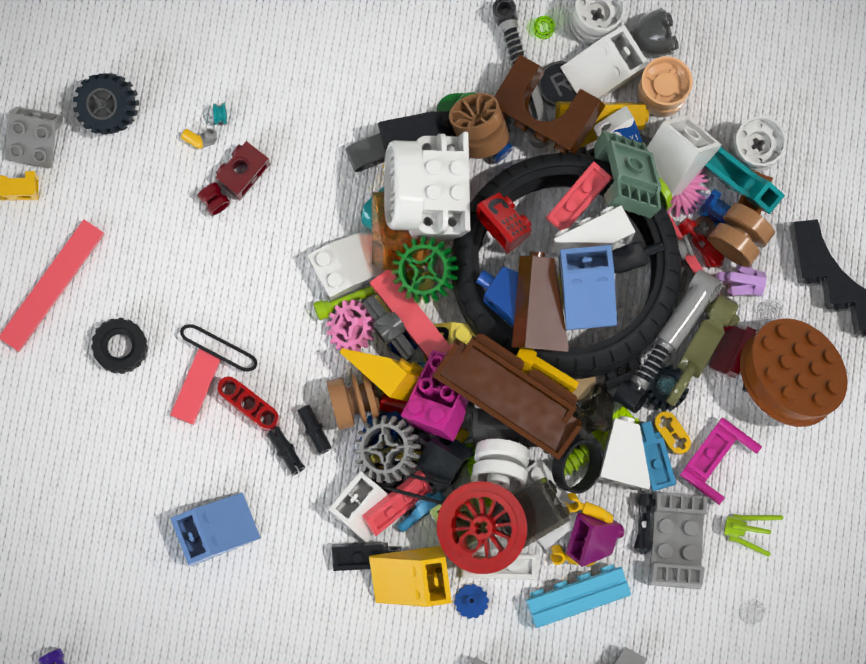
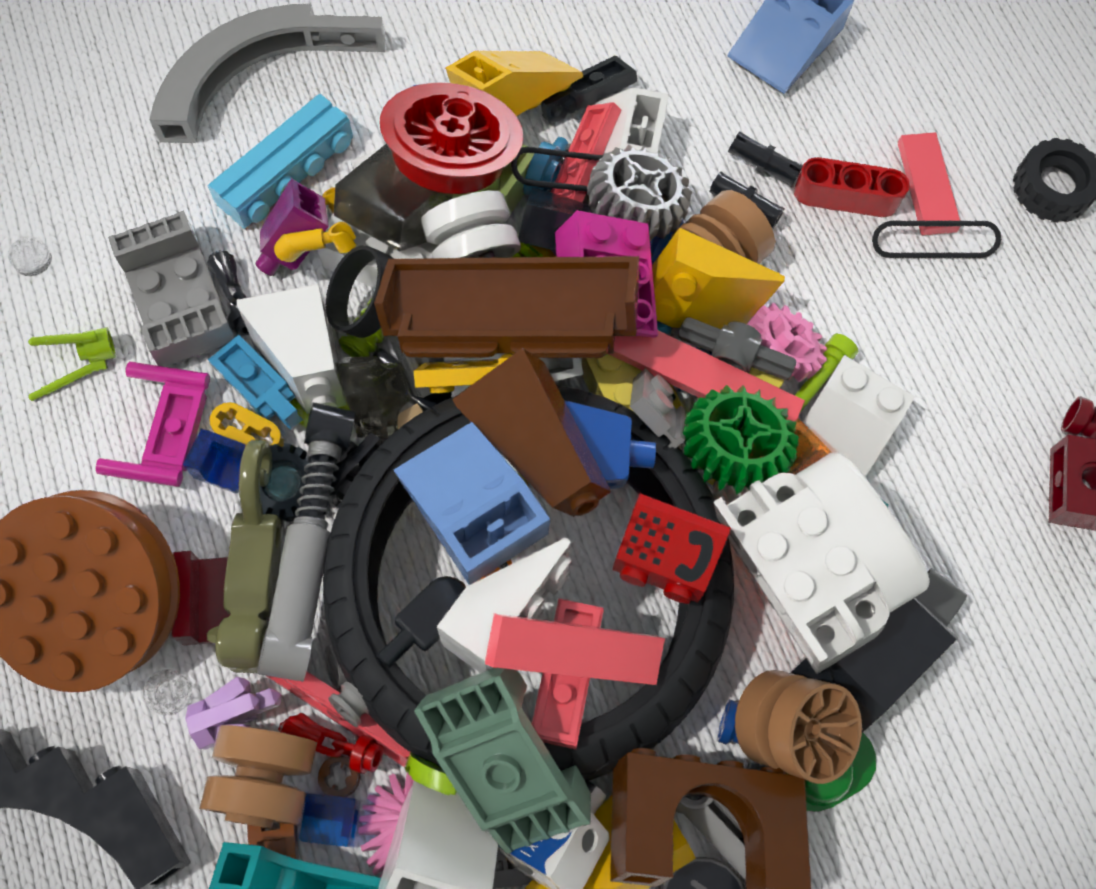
camera: 150 degrees right, 10 degrees down
(455, 311) = (654, 405): none -> light grey plate
(574, 195) = (573, 650): none -> coral tile
(694, 421) = (215, 460): none -> clear blue panel

